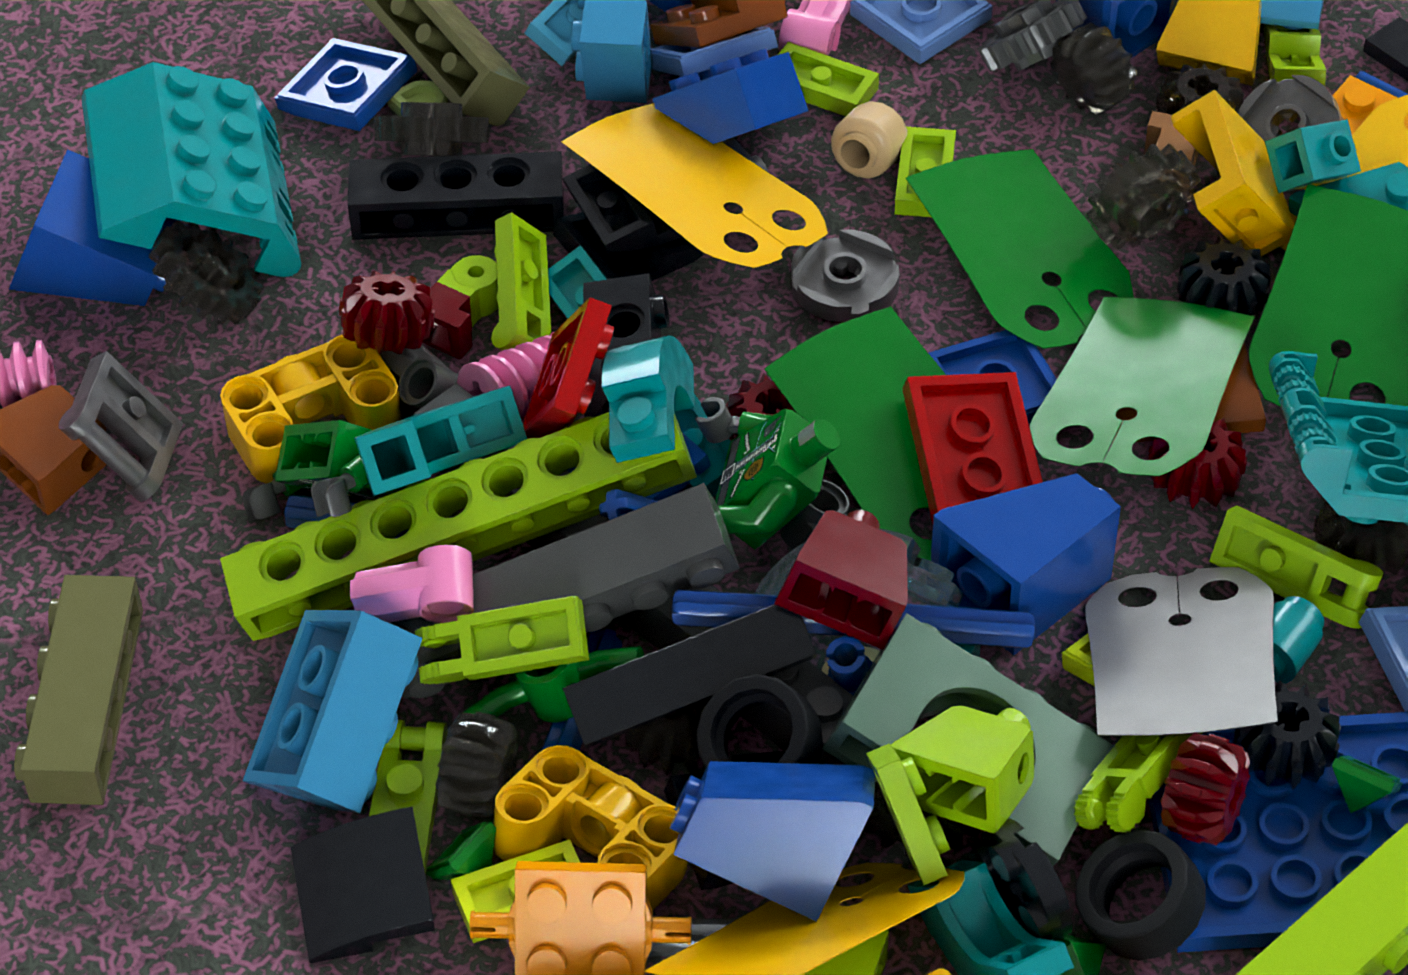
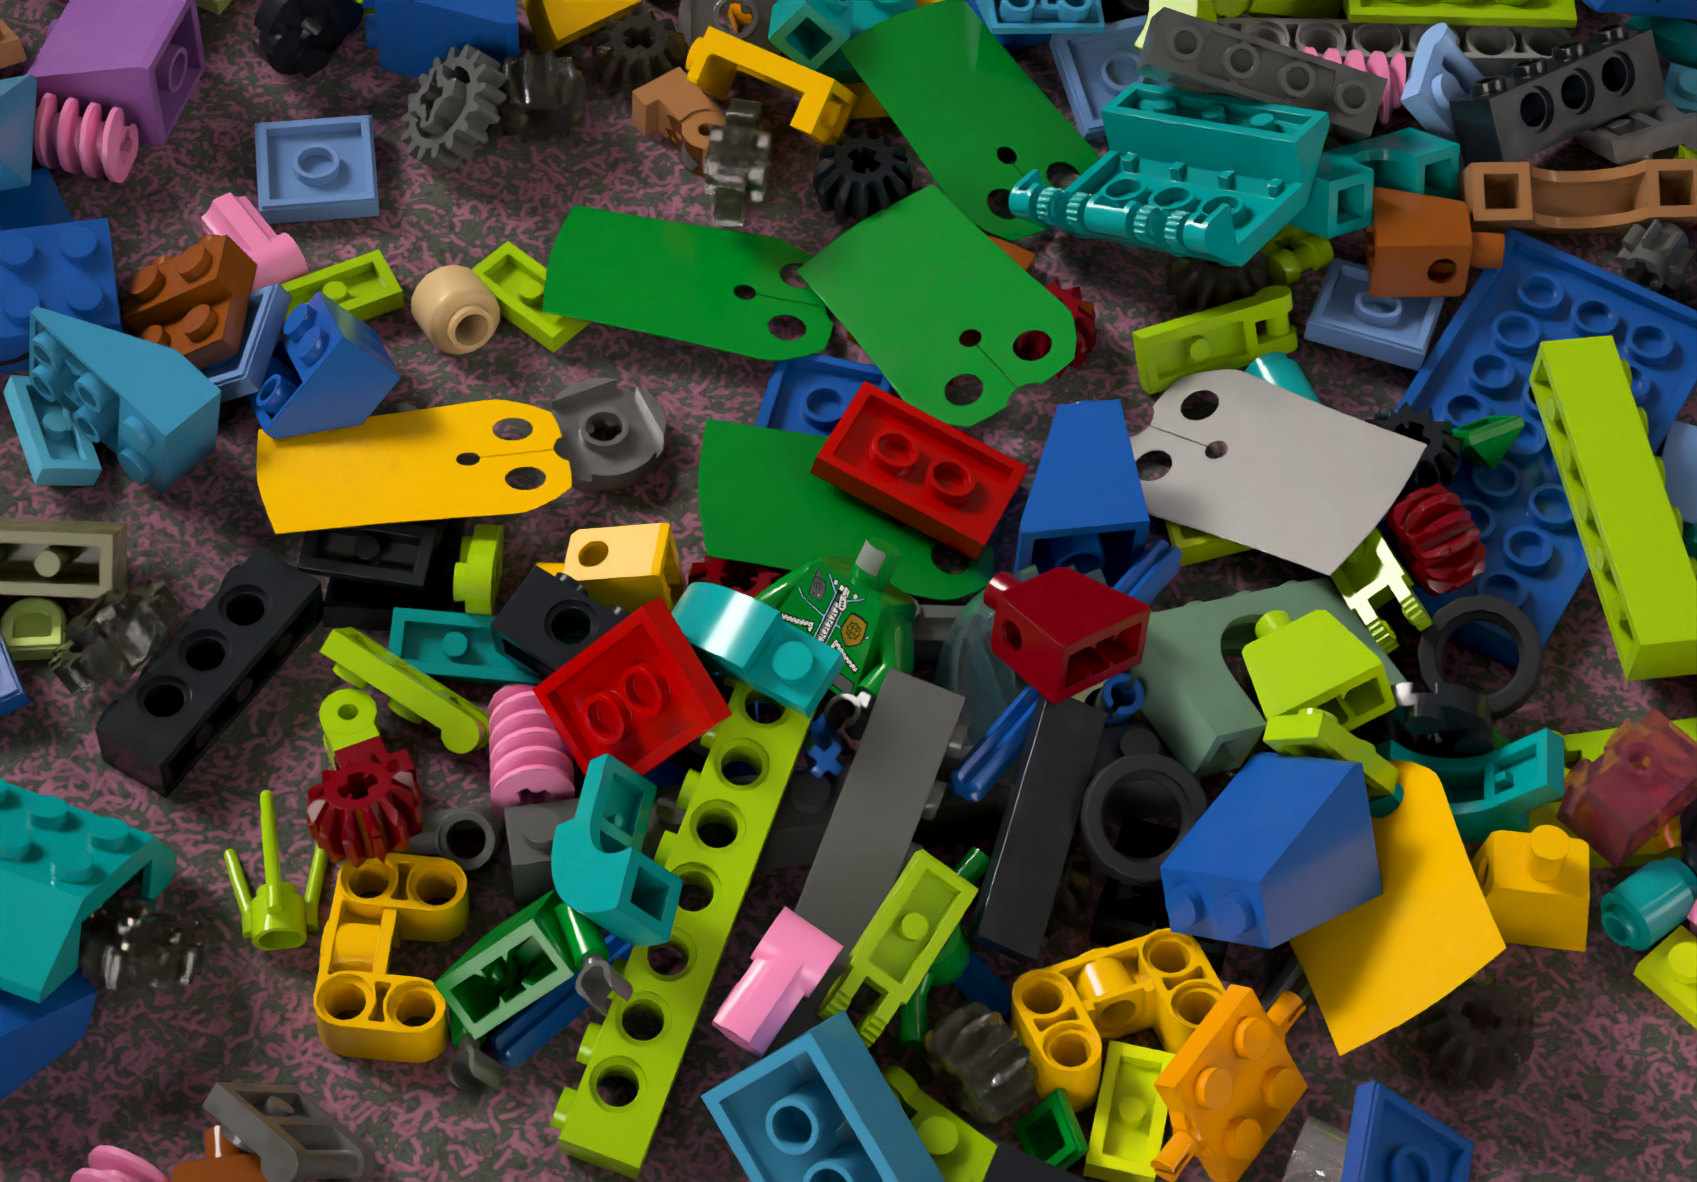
camera: 60 degrees left, 5 degrees up
(302, 328) = (278, 913): none -> lime plant
(672, 268) = (480, 569): none -> lime plate
(715, 338) = (625, 565): none -> yellow torso

